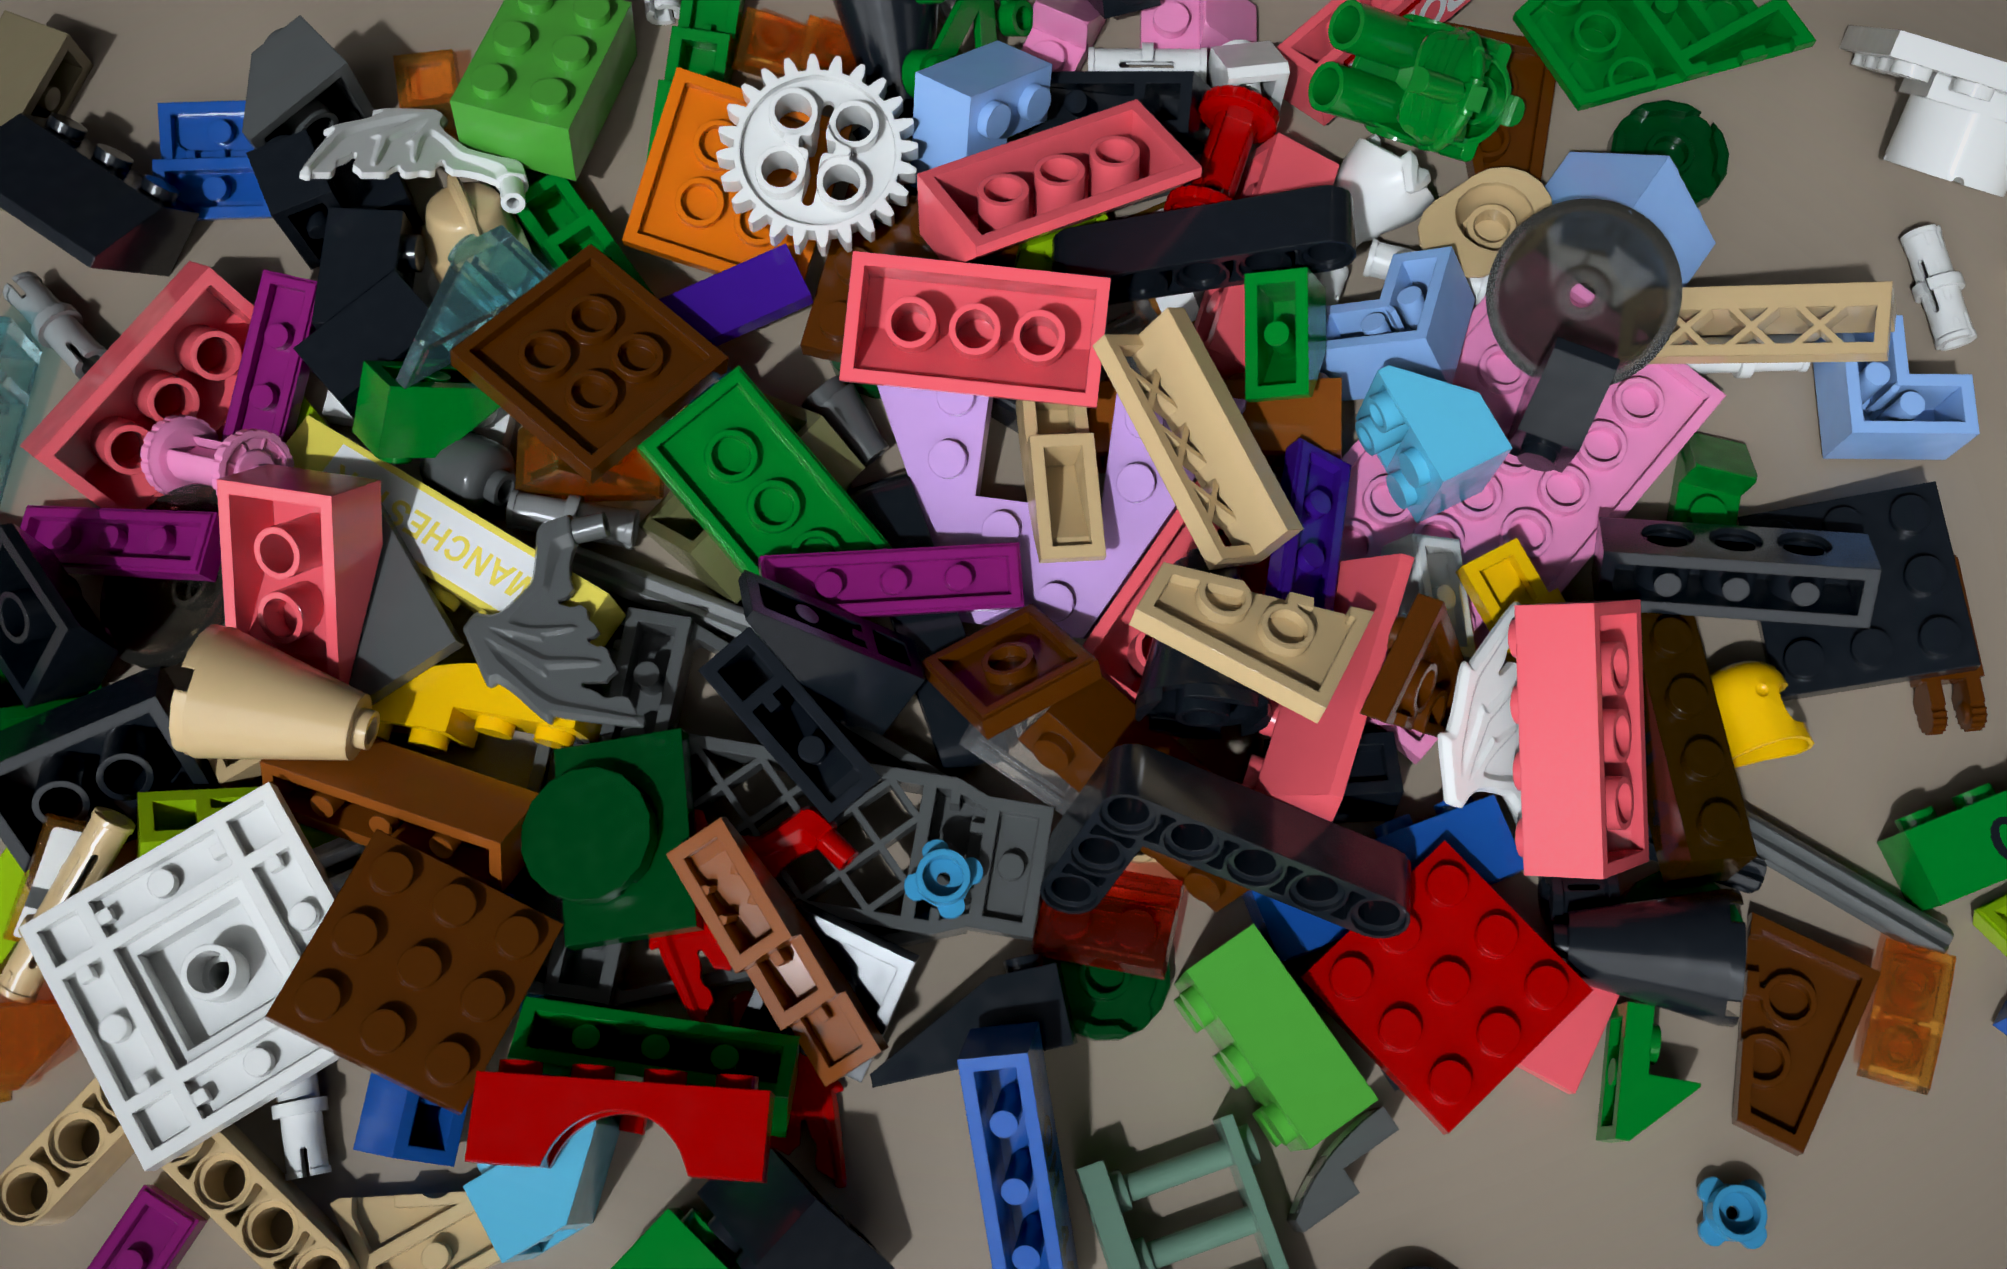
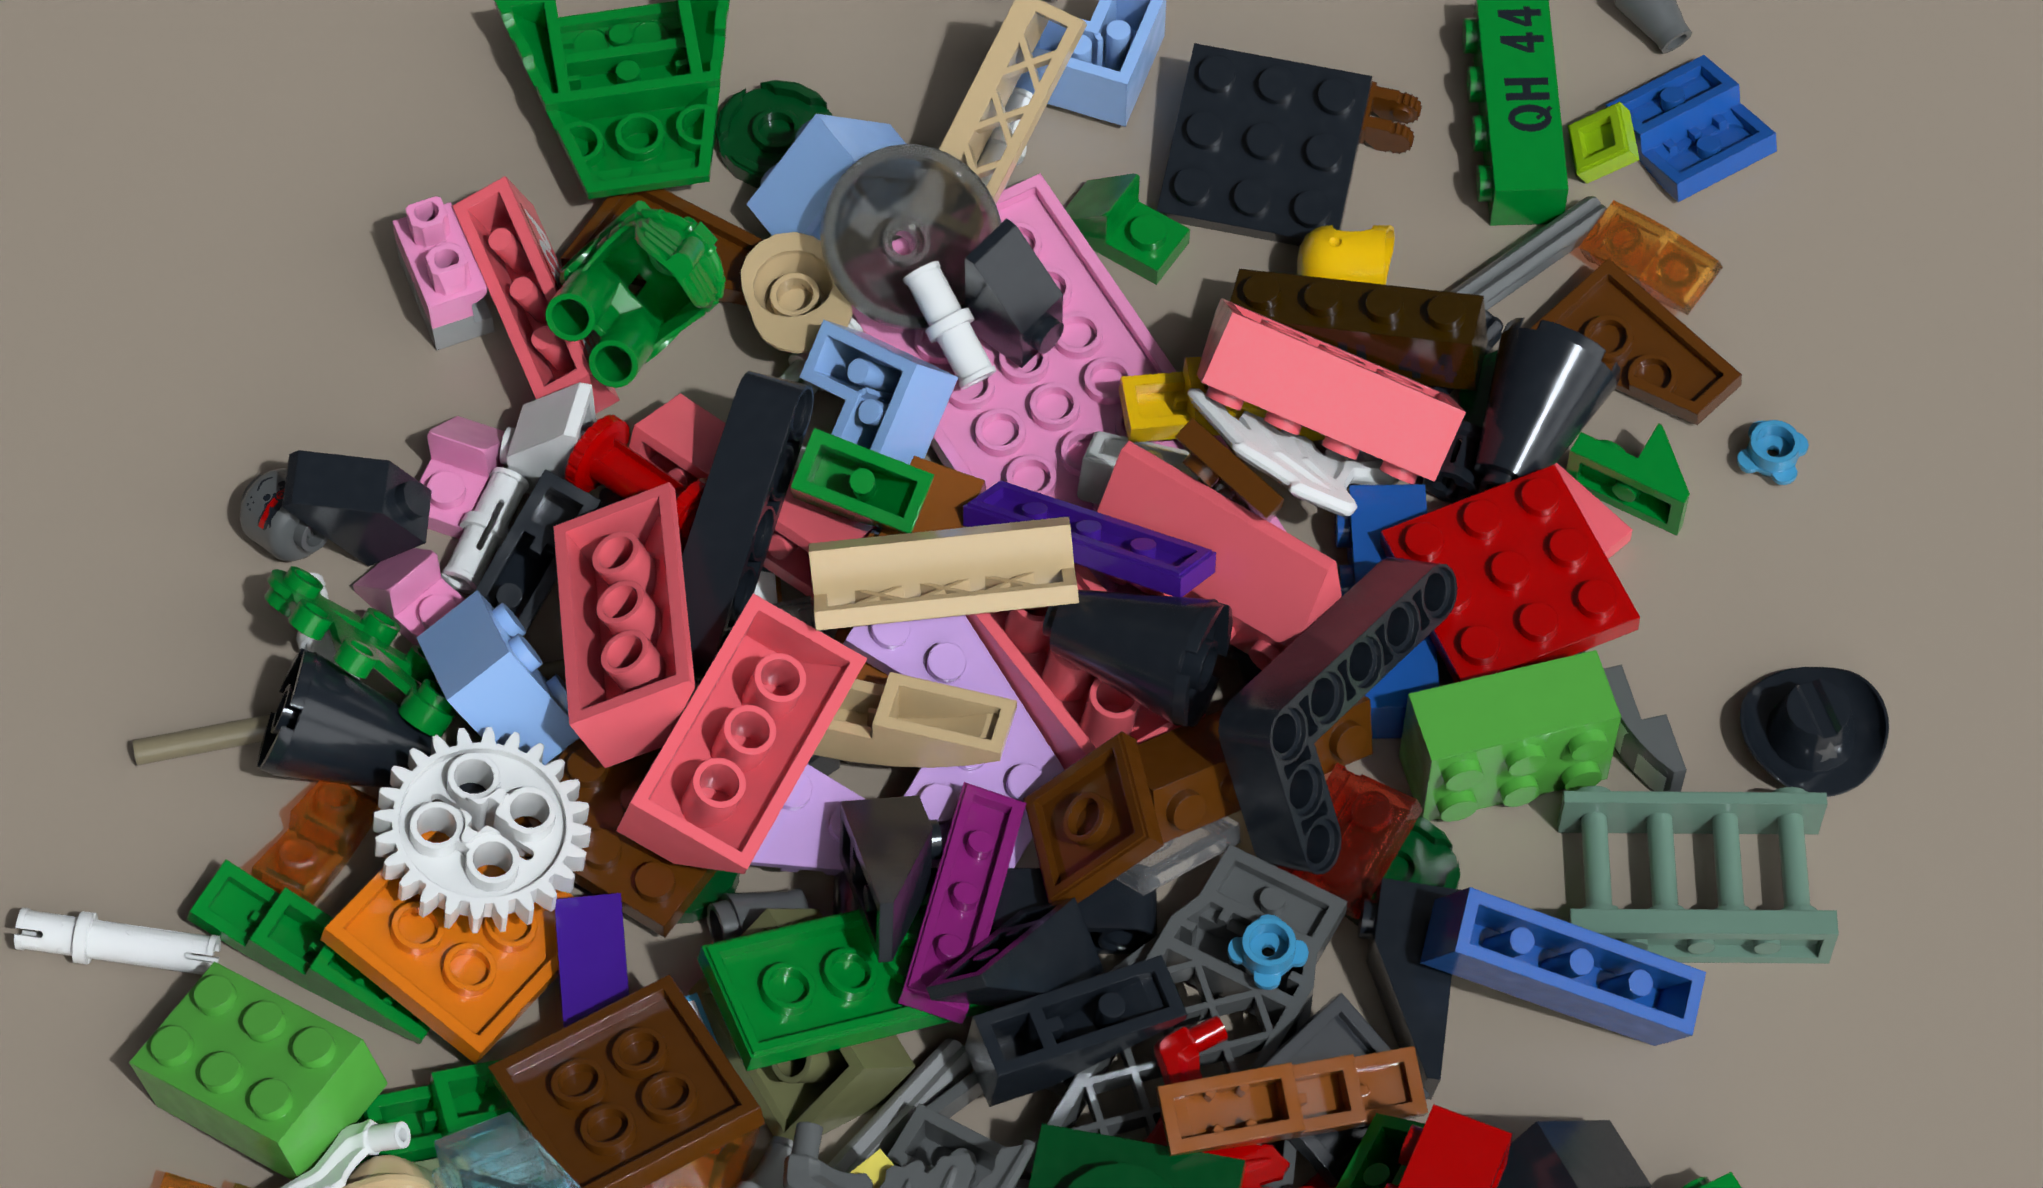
camera: 70 degrees left, 15 degrees down
(887, 504) = (888, 864): none -> black slope
(1256, 639) = (1167, 575): tan wing -> none
(1384, 188) = (710, 366): white hat -> none
(1430, 439) = (1005, 407): medium azure slope -> none
(1513, 355) = (949, 324): none -> white pin
(1737, 571) = (1219, 222): black brick -> none

